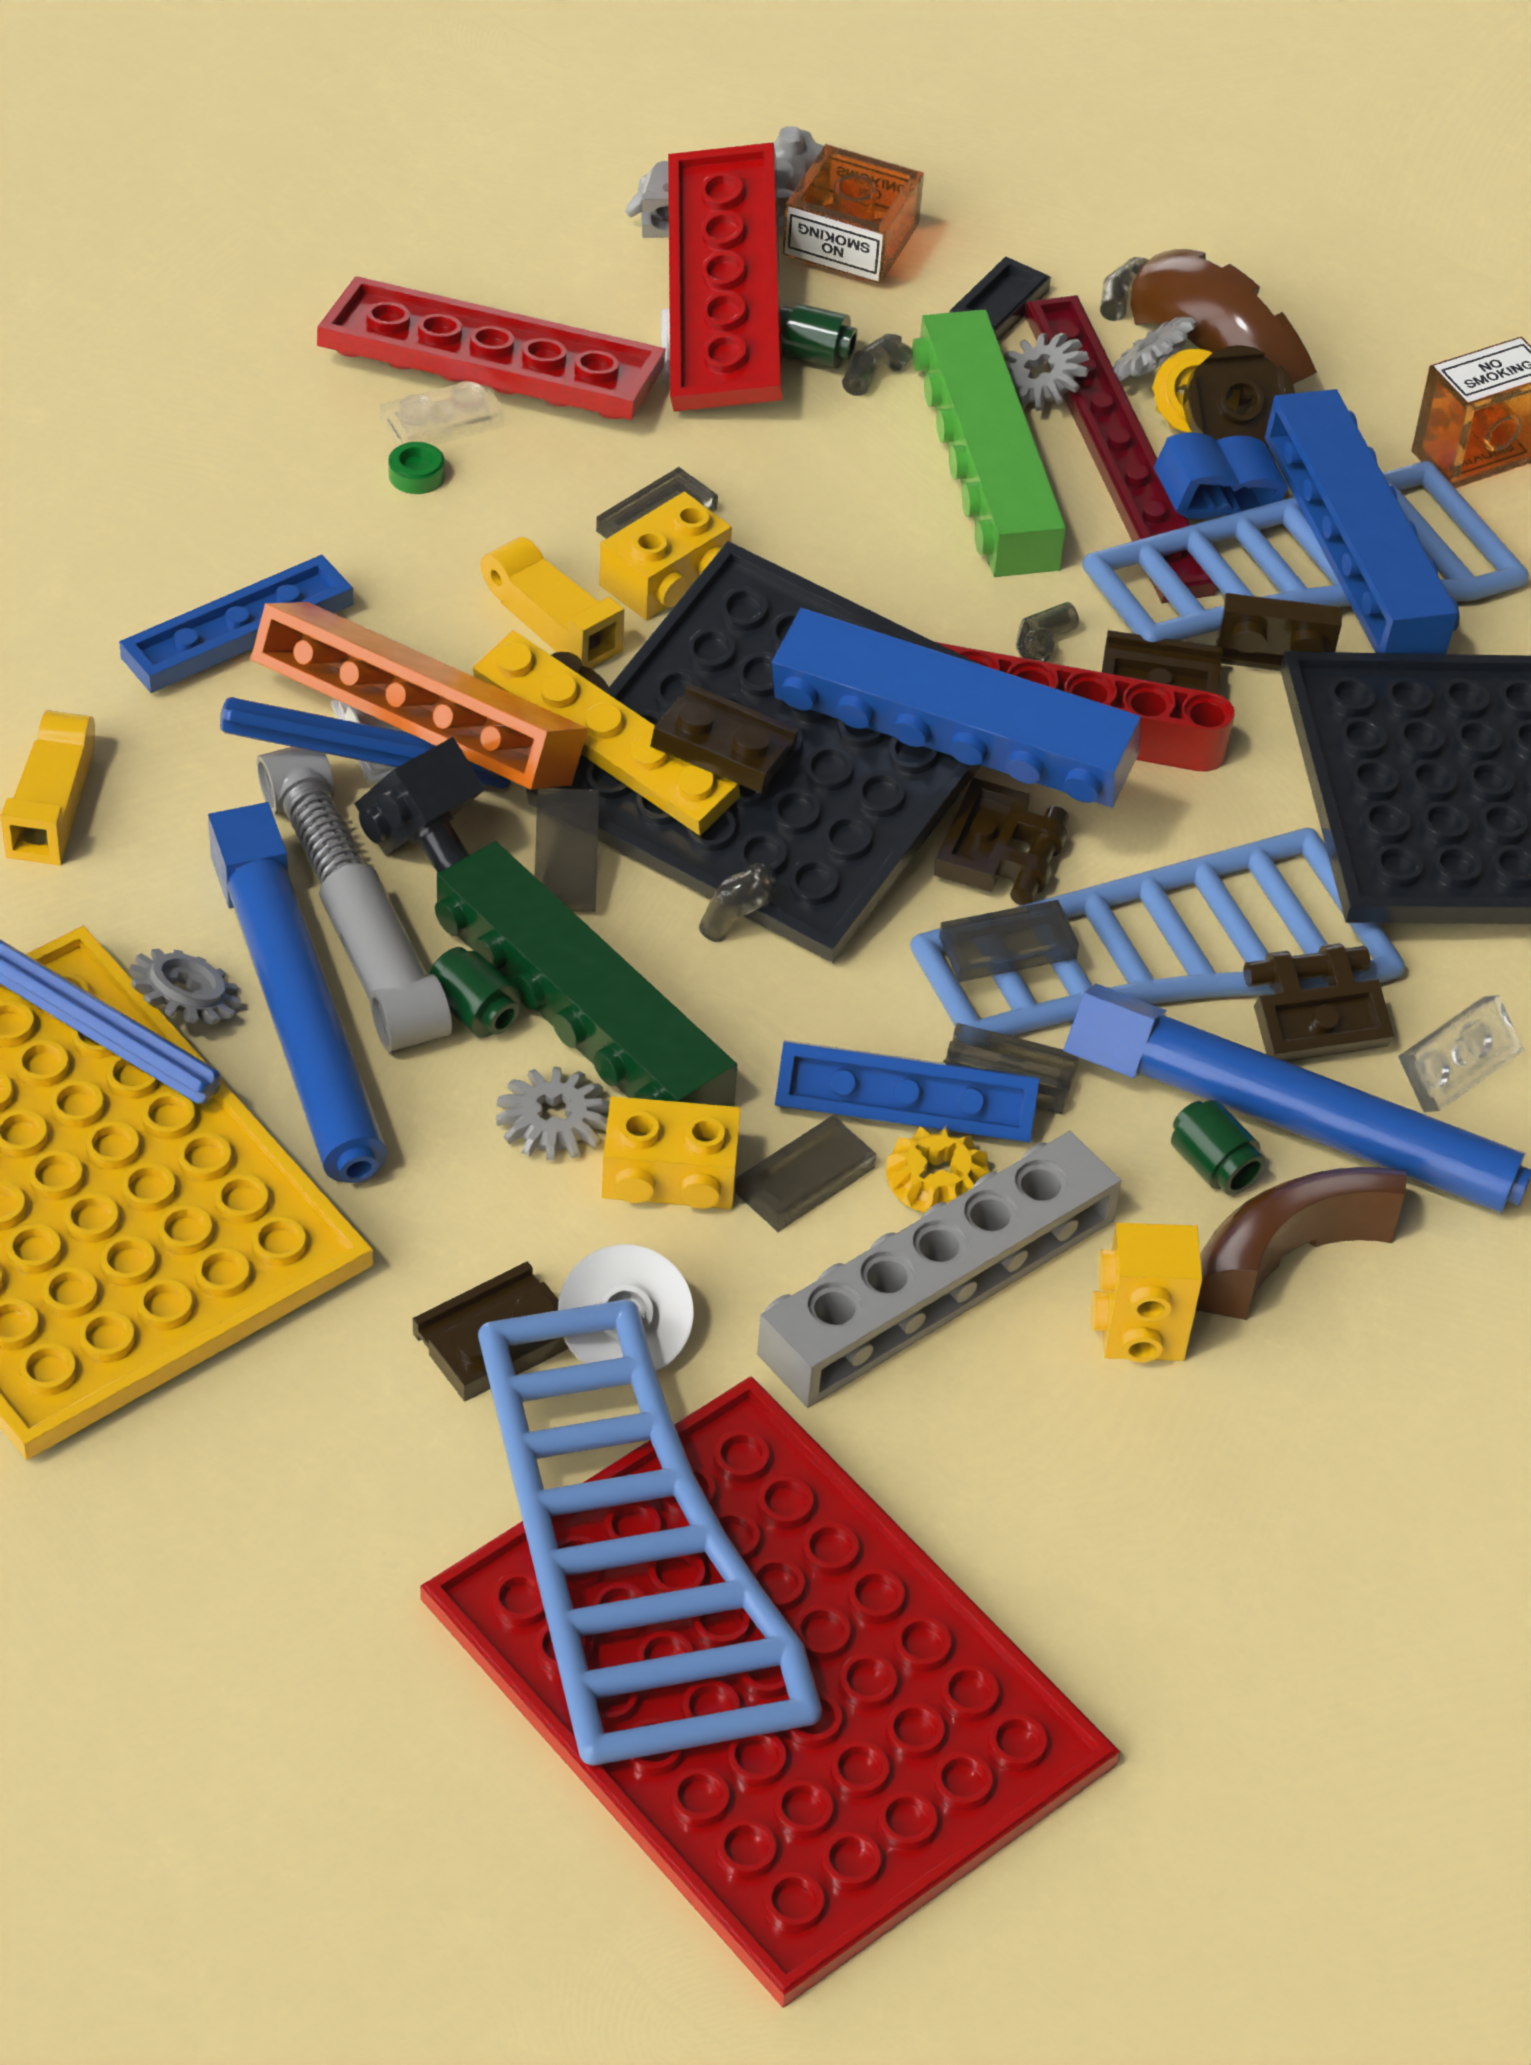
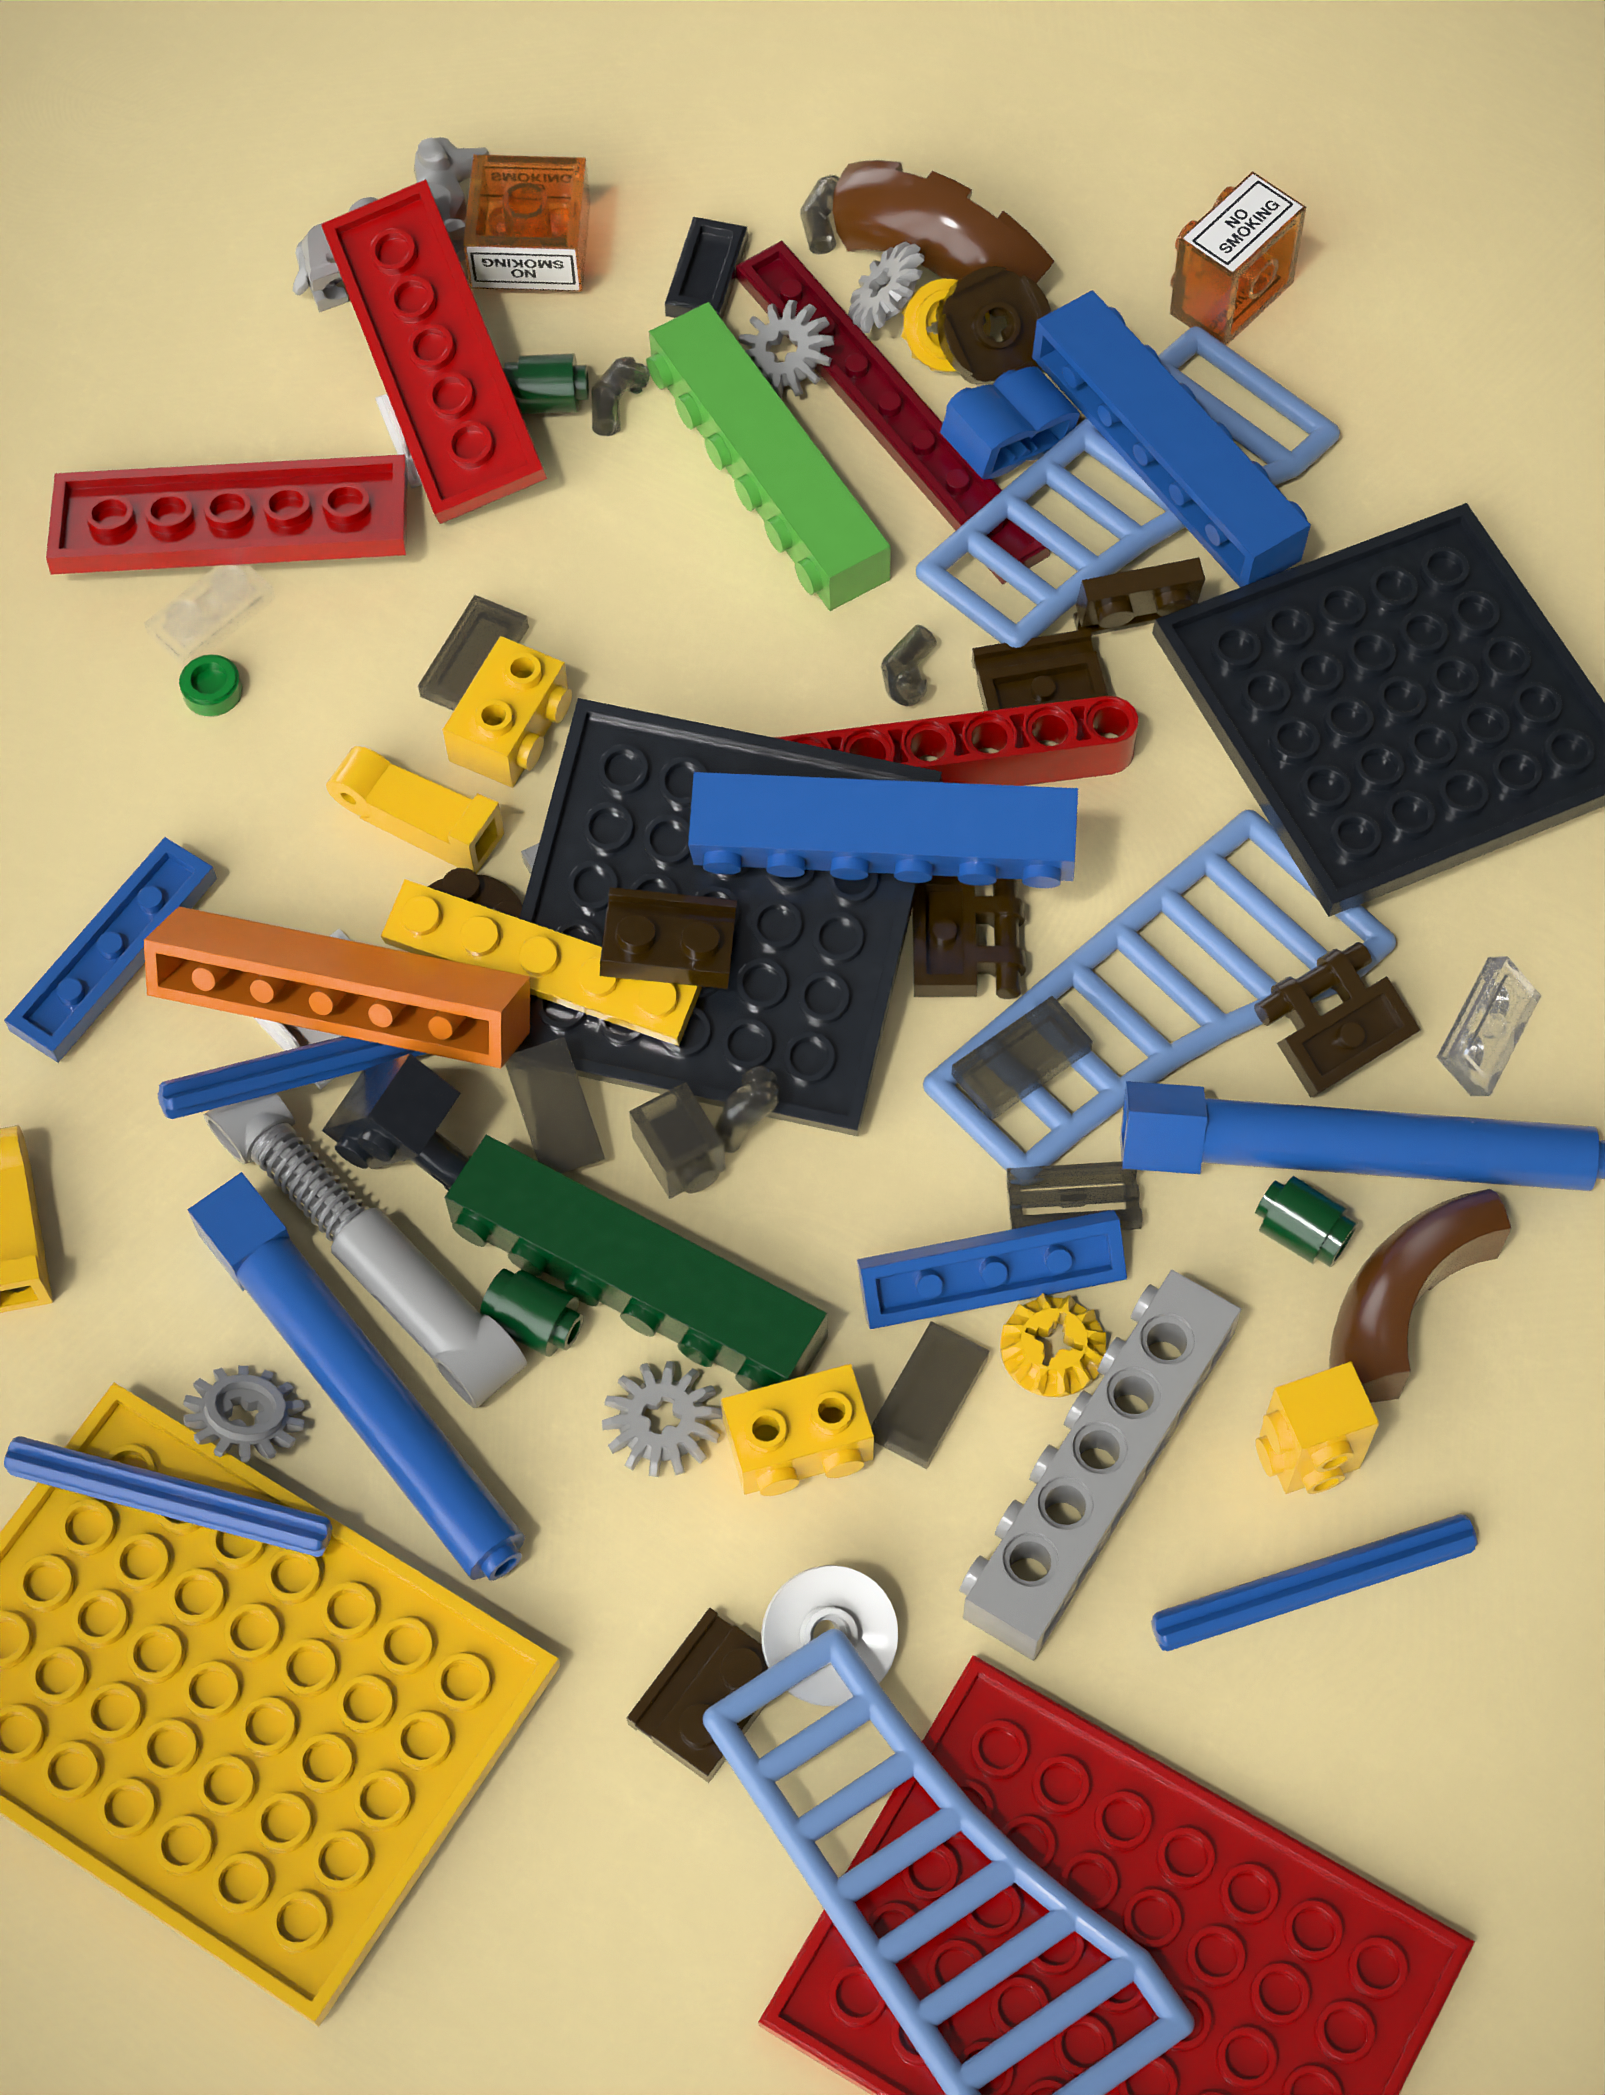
camera: 15 degrees left, 15 degrees up
(666, 908) = (678, 1141): none -> clear smoke brick
(1098, 1427) = (1313, 1582): none -> blue axle

